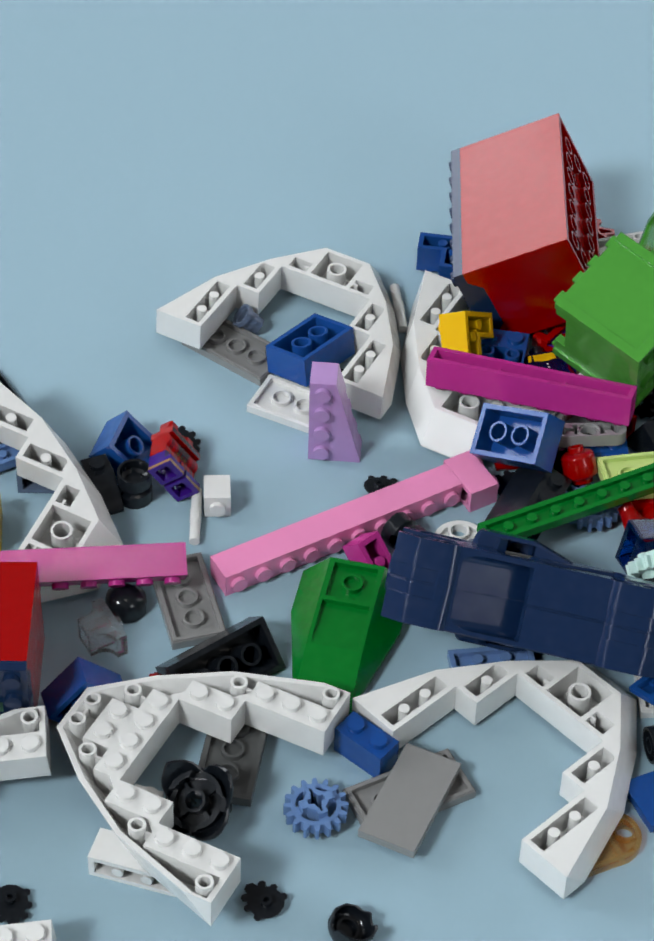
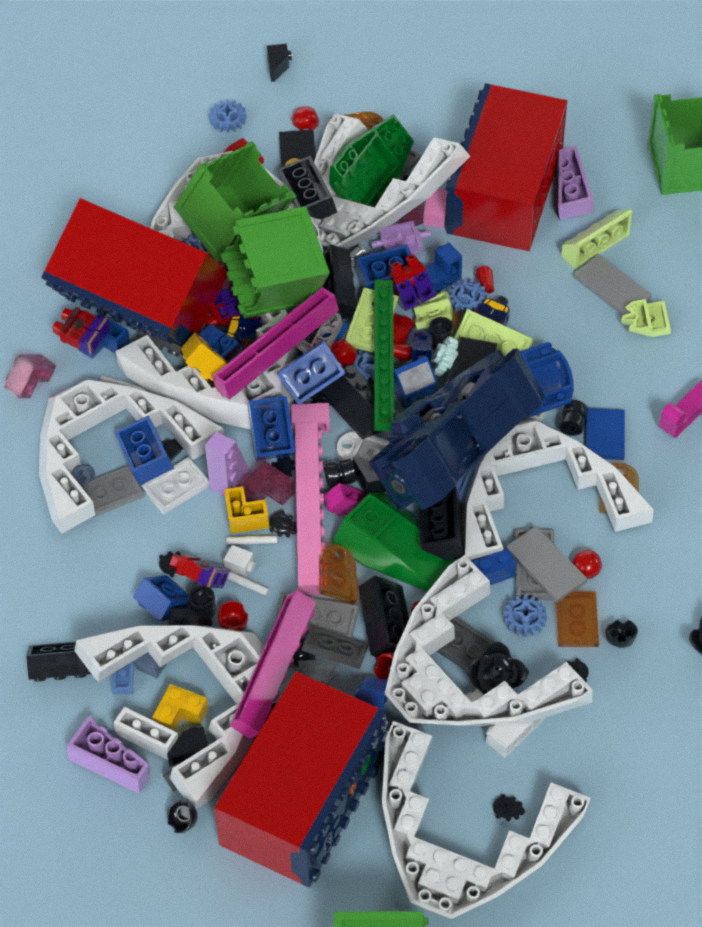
camera: 60 degrees left, 10 degrees up
(133, 517) = (232, 616): none -> red hair
(143, 625) = (335, 647): none -> dark grey tile
(253, 589) = (337, 574): none -> clear orange tile
(260, 499) = (249, 540): none -> white piece
(286, 469) = (245, 515): none -> yellow brick
(298, 512) = (282, 524): none -> black piece
(340, 473) = (268, 482): none -> clear pink brick
(349, 873) = (578, 620): none -> clear orange tile
(350, 218) = (27, 372): none -> clear pink brick
(388, 656) = (442, 527): none -> black slope
(418, 440) = (271, 428): none -> blue brick
(426, 220) = (81, 329): none -> hips
(445, 849) = (588, 563): none -> red hair
(595, 545) = (414, 382): none -> slope

